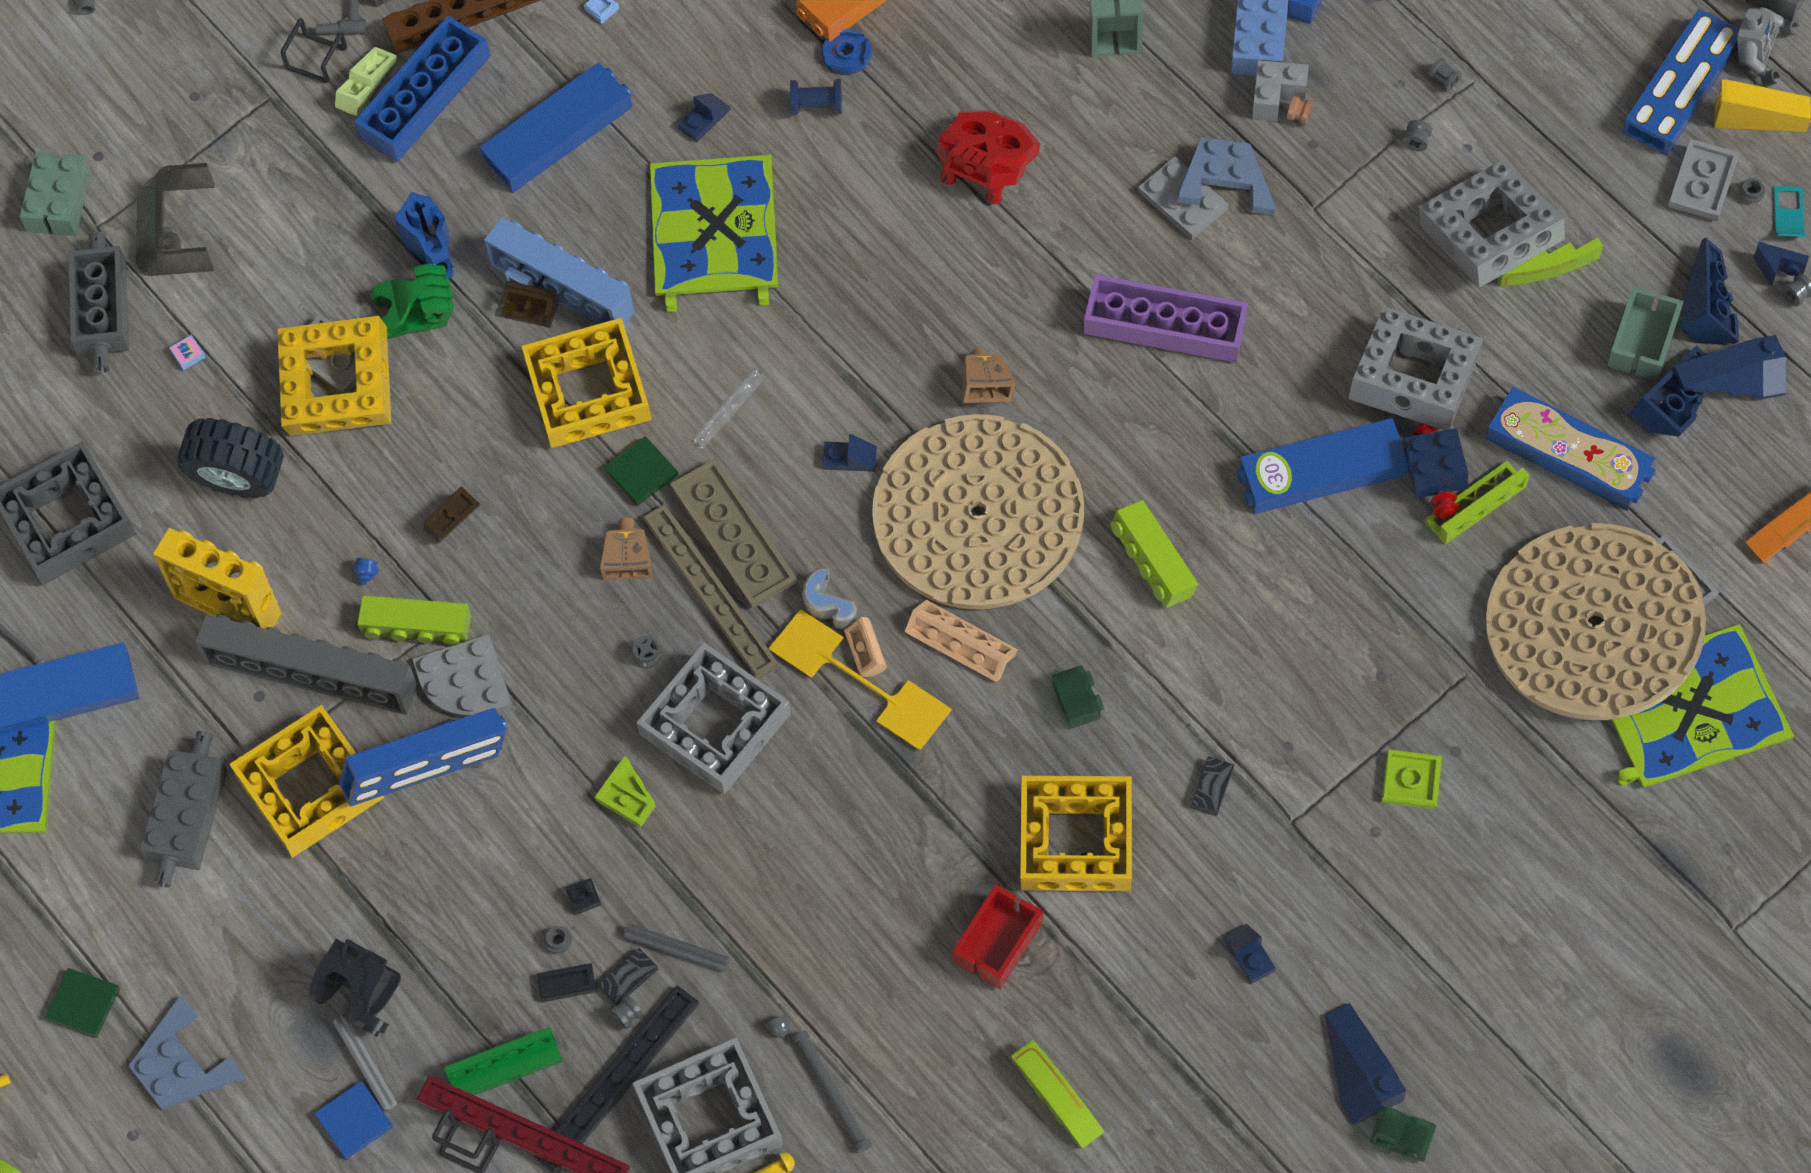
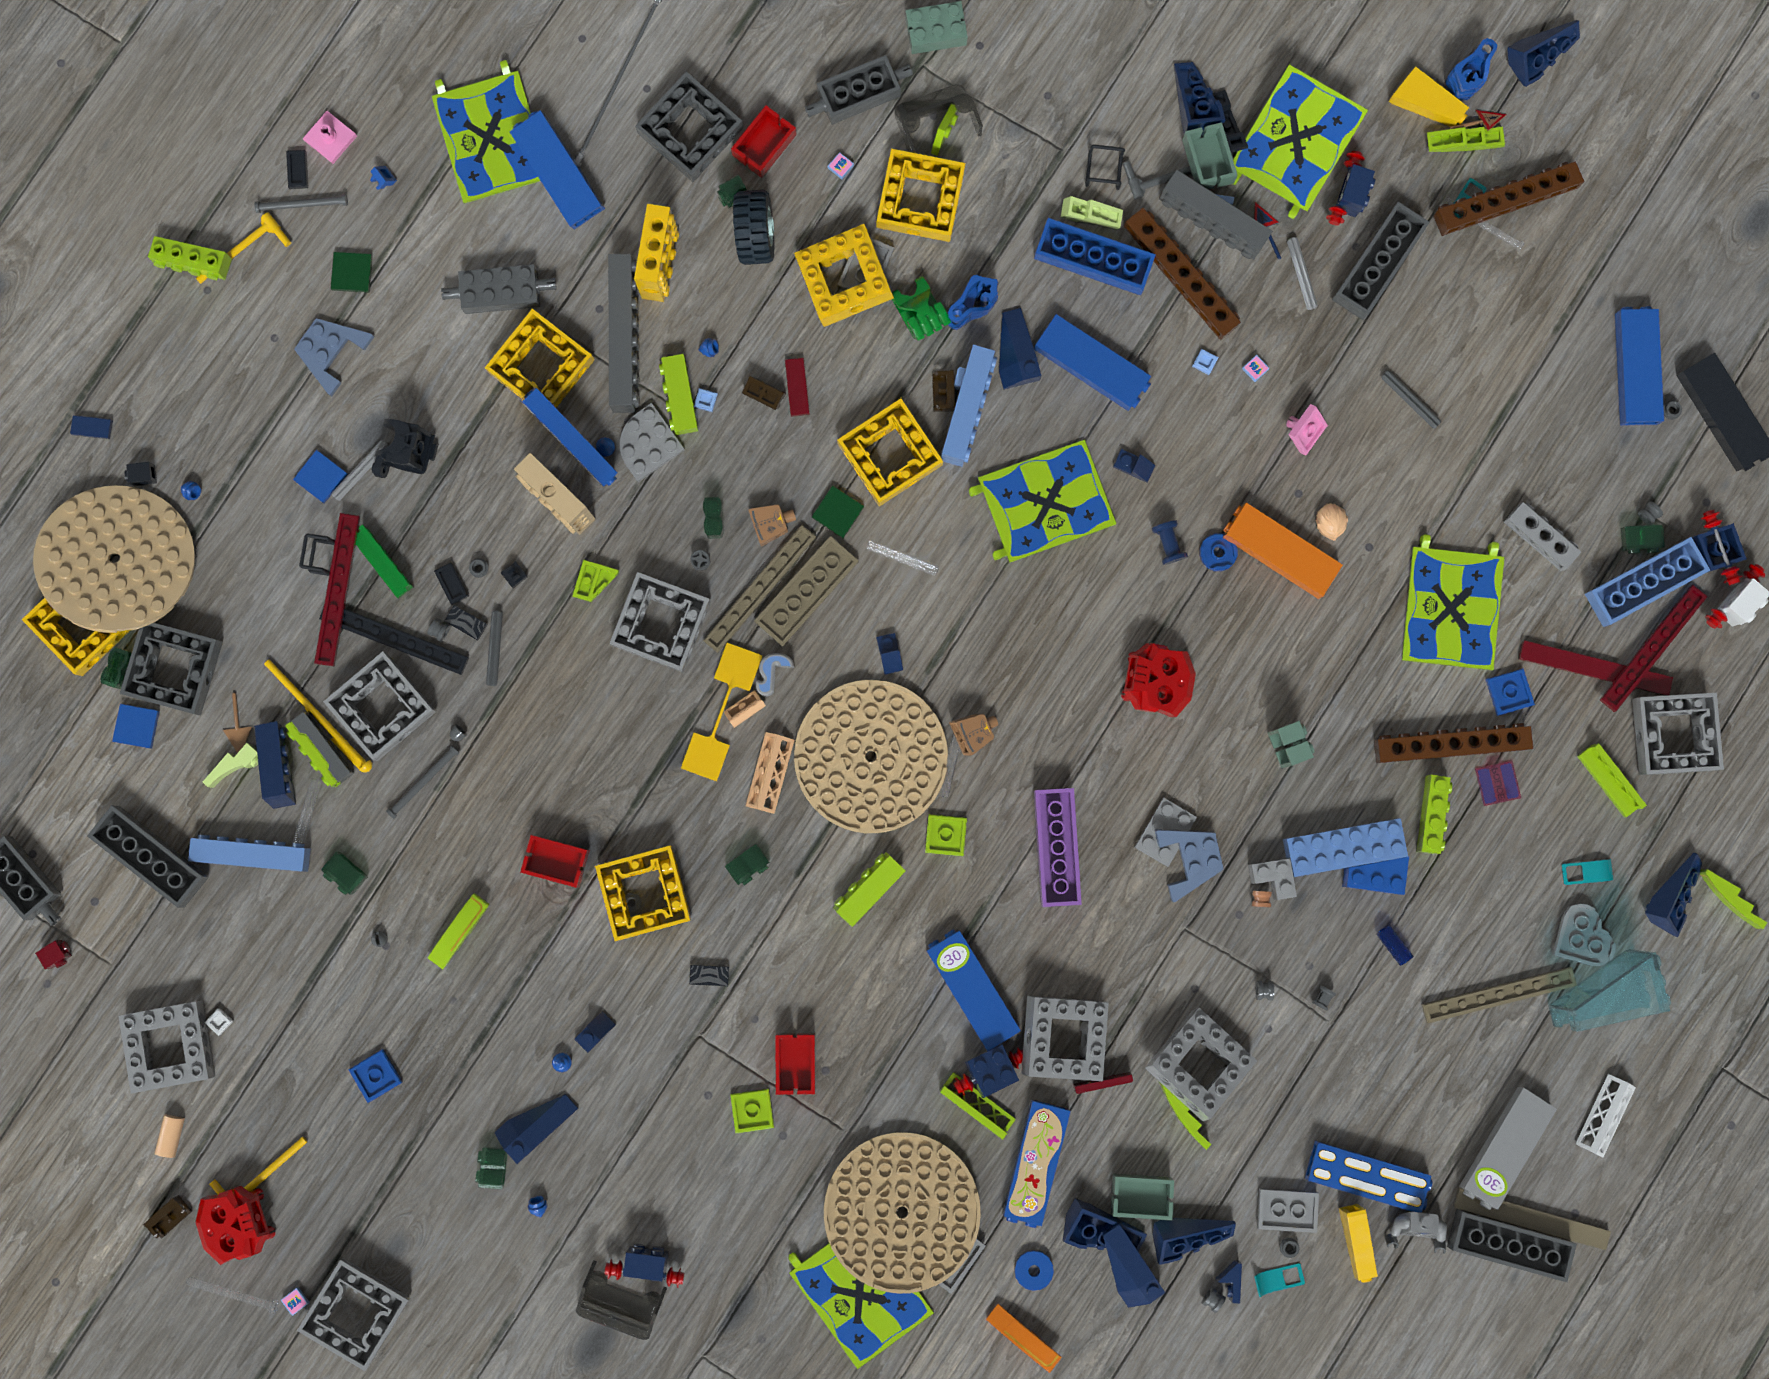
camera: 65 degrees right, 20 degrees up
(119, 429) = (763, 141): none -> red piece
(170, 481) = (728, 189): none -> clear green brick
(191, 215) = (944, 129): none -> lime wing
(256, 222) = (924, 168): none -> yellow brick
(433, 590) = (705, 400): none -> light blue tile
(453, 476) = (797, 387): none -> dark red tile
(472, 803) = (553, 494): none -> tan brick
(524, 202) = (1017, 355): none -> dark blue wedge
(599, 619) = (713, 511): none -> clear green brick
(1110, 450) = (946, 835): none -> lime tile
(1279, 1006) = (561, 1062): none -> blue plate
(1362, 701) = (795, 1063): none -> red piece
(1472, 1088) = (537, 1206): none -> blue plate
(1486, 351) = (1109, 1081): none -> dark red tile
(1585, 958) = (645, 1264): none -> dark blue brick
(1644, 1014) = (618, 1307): none -> clear smoke windscreen
(1715, 476) = (1037, 1281): none -> blue tile

